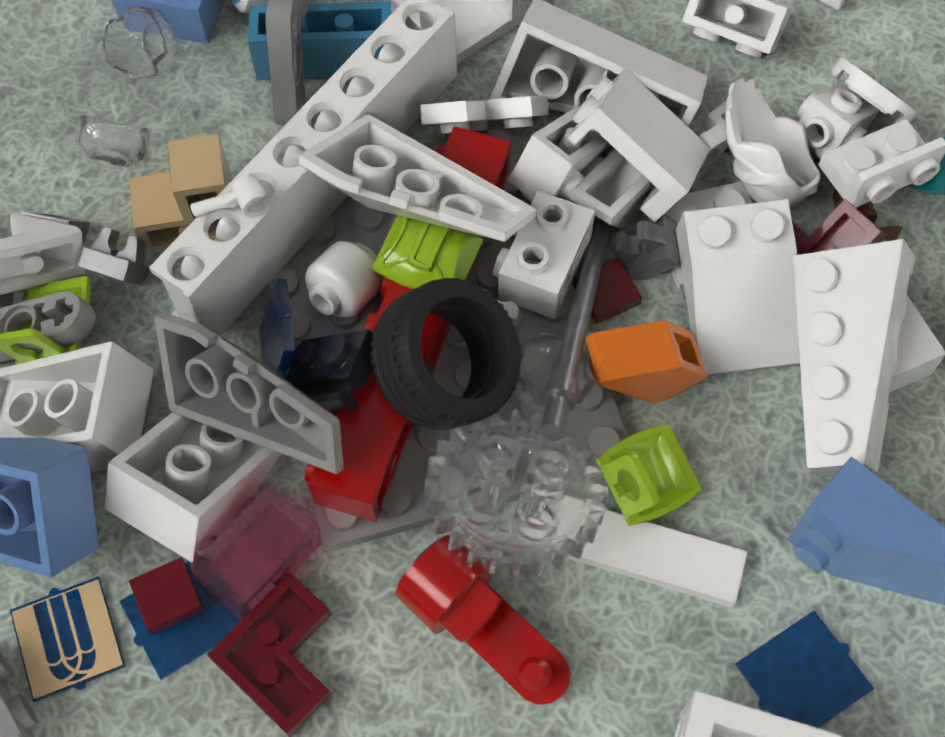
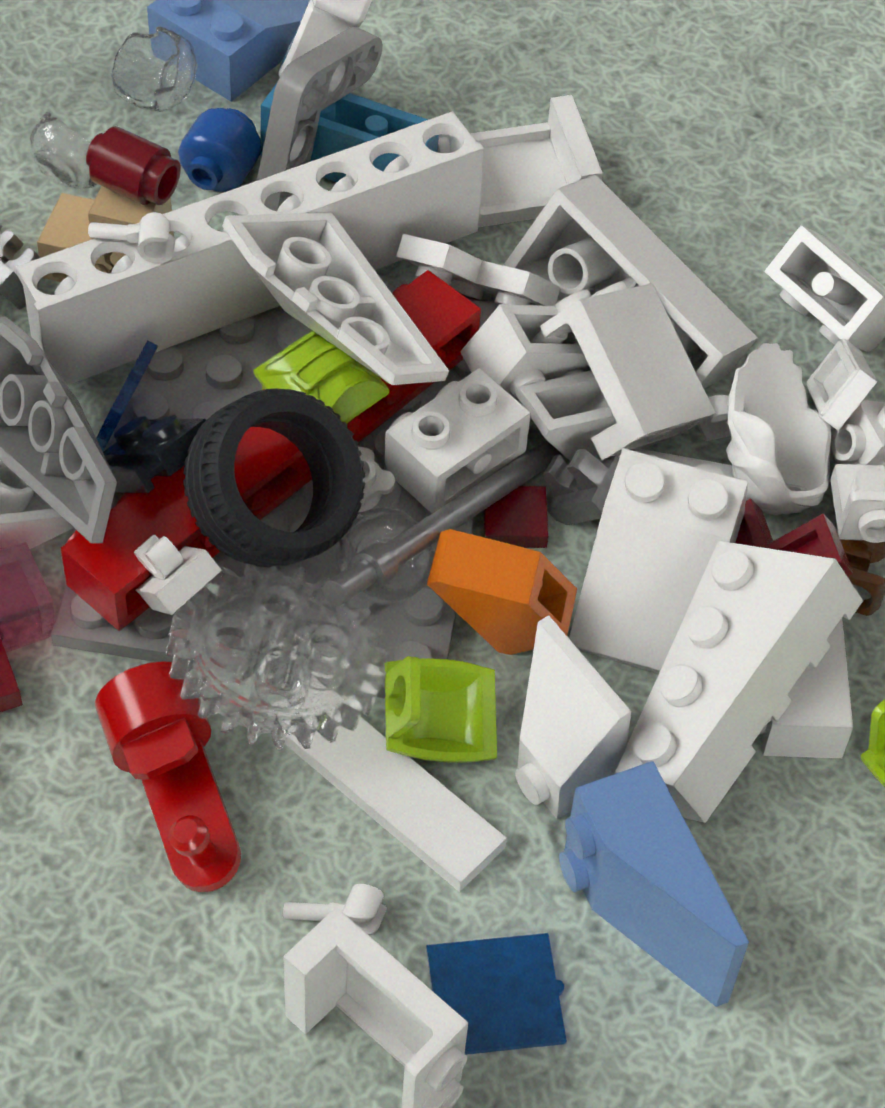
camera: 20 degrees right, 10 degrees down
(191, 140) = (132, 166): none -> dark red brick
(227, 89) = (220, 149): none -> blue head
(343, 279) = (218, 372): white head -> none
(411, 467) = (174, 573): none -> white tile
(676, 663) = (361, 906): none -> white hand
(748, 444) = (570, 723): none -> white slope
(790, 87) = (840, 383): none -> white tile

